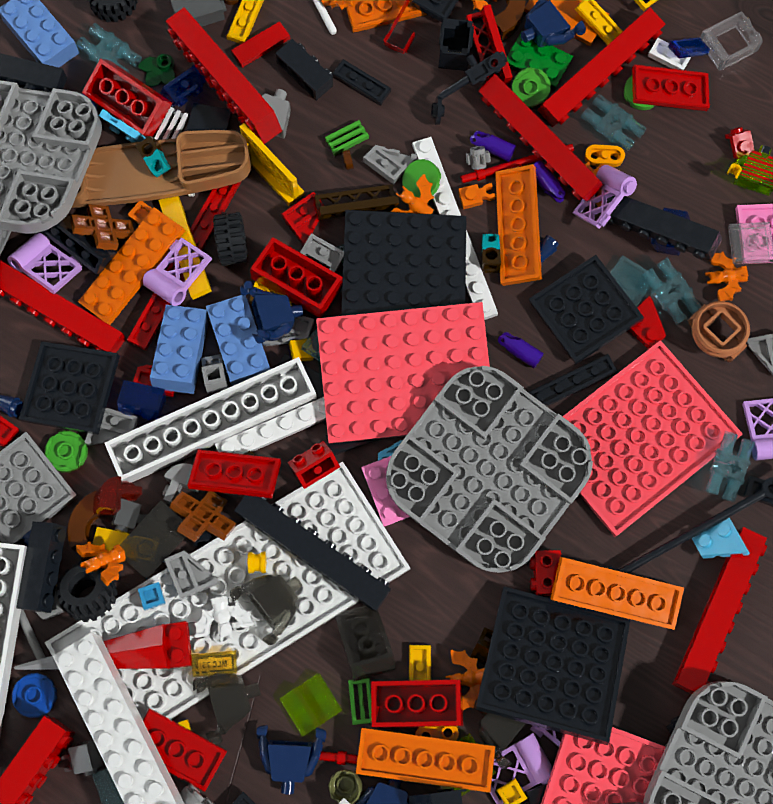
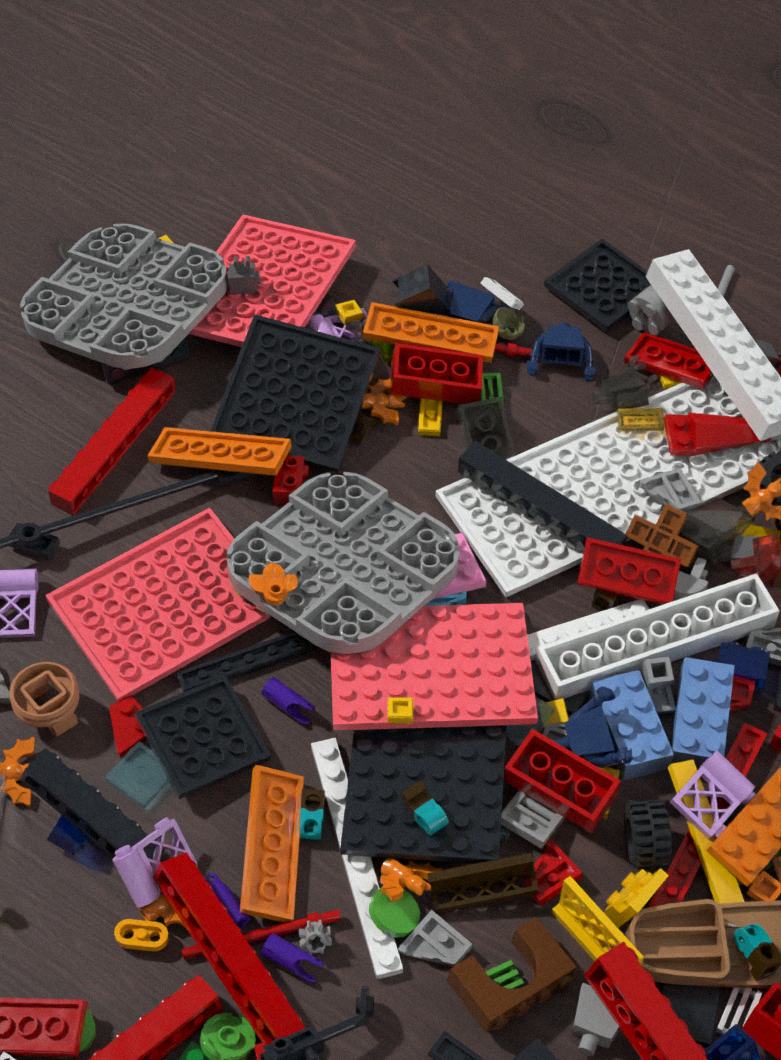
camera: 175 degrees left, 20 degrees down
(151, 596) = (710, 474): dark azure plate -> none
(222, 614) = (634, 455): white animal -> none
(242, 192) = (633, 896): none -> yellow plate
(257, 562) = (600, 496): yellow wheel -> none
(273, 600) = (584, 462): clear smoke torso -> none
(310, 704) = (541, 391): clear neon green slope -> none
(313, 464) = (540, 588): red brick -> none
(345, 112) = (495, 1004): none -> reddish brown arch
(347, 159) = (492, 947): reddish brown tile -> none
(404, 238) = (424, 808): none -> leg
(428, 311) = (400, 710): none -> yellow tile
(473, 196) = (326, 893): orange plate -> none
(547, 247) = (237, 818): dark blue cone -> none
(549, 427) = (273, 584): none -> orange plate
(613, 114) = (118, 993): clear light blue pin -> none
(669, 301) = (91, 752): clear light blue pin -> none
(720, 541) = (95, 490): medium azure wing -> none
(735, 471) = (69, 562): clear light blue pin -> none

